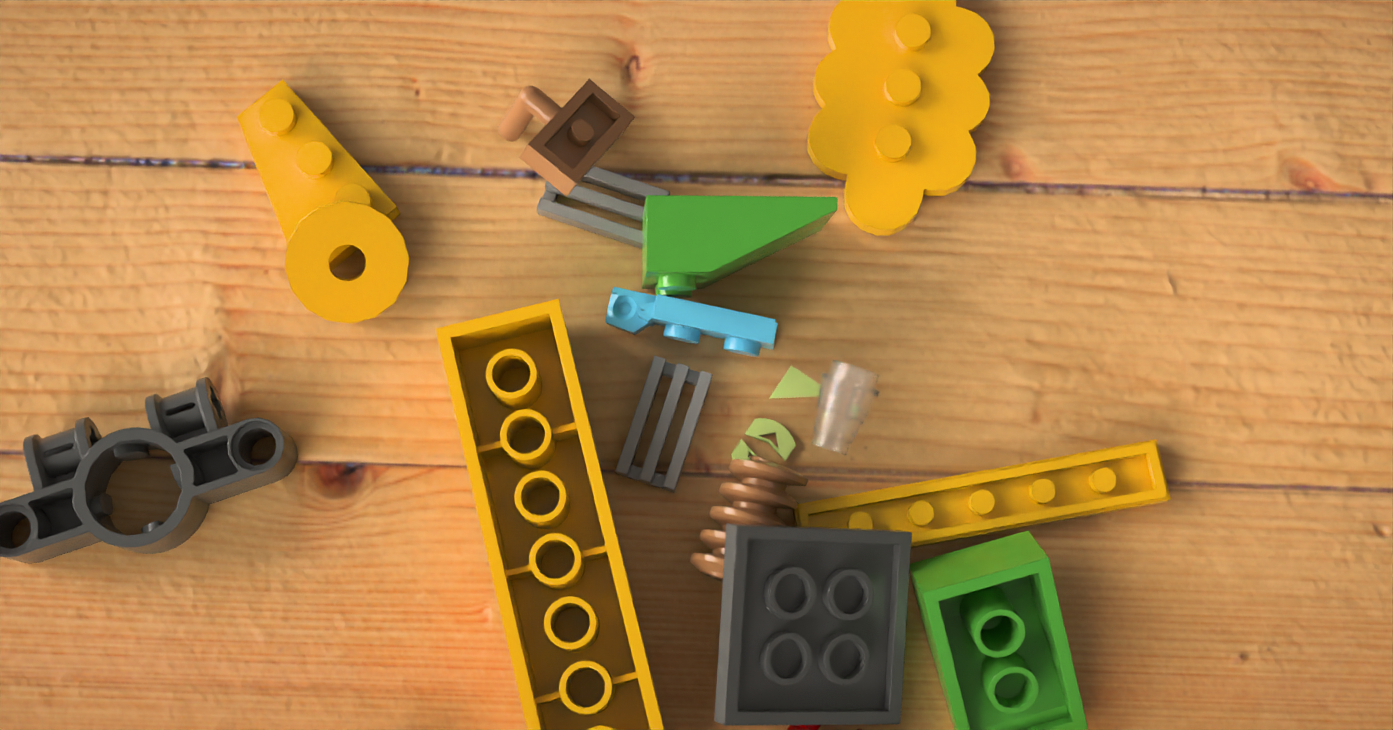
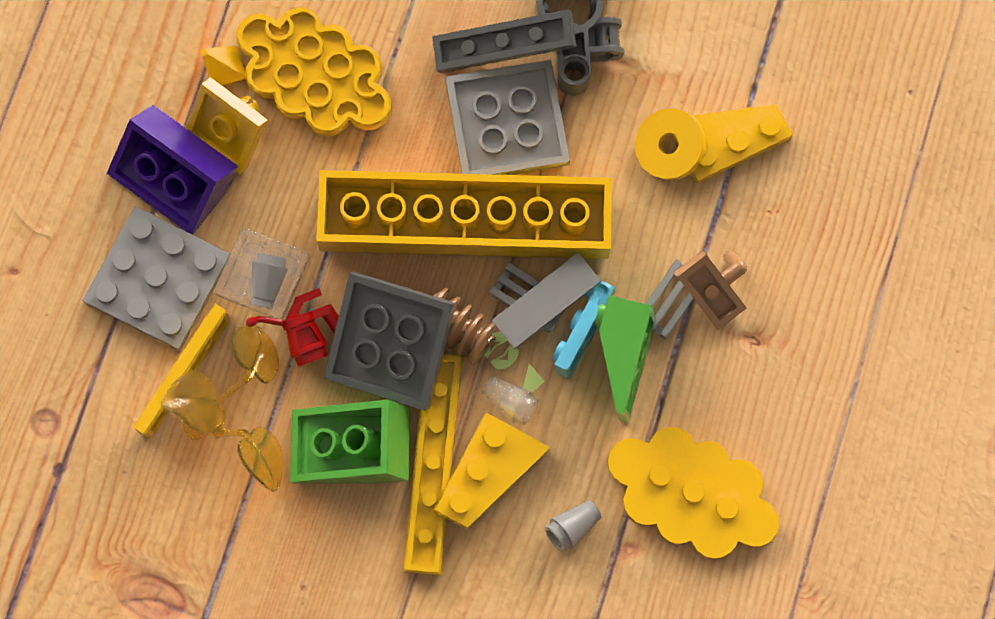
camera: 105 degrees right, 0 degrees up
(231, 580) = (504, 41): none -> dark grey plate
(369, 542) = (508, 120): none -> light grey plate
(667, 388) = (546, 300): none -> light grey tile
(970, 412) = (487, 469): none -> yellow wing
(1012, 256) = (572, 525): none -> light grey cone

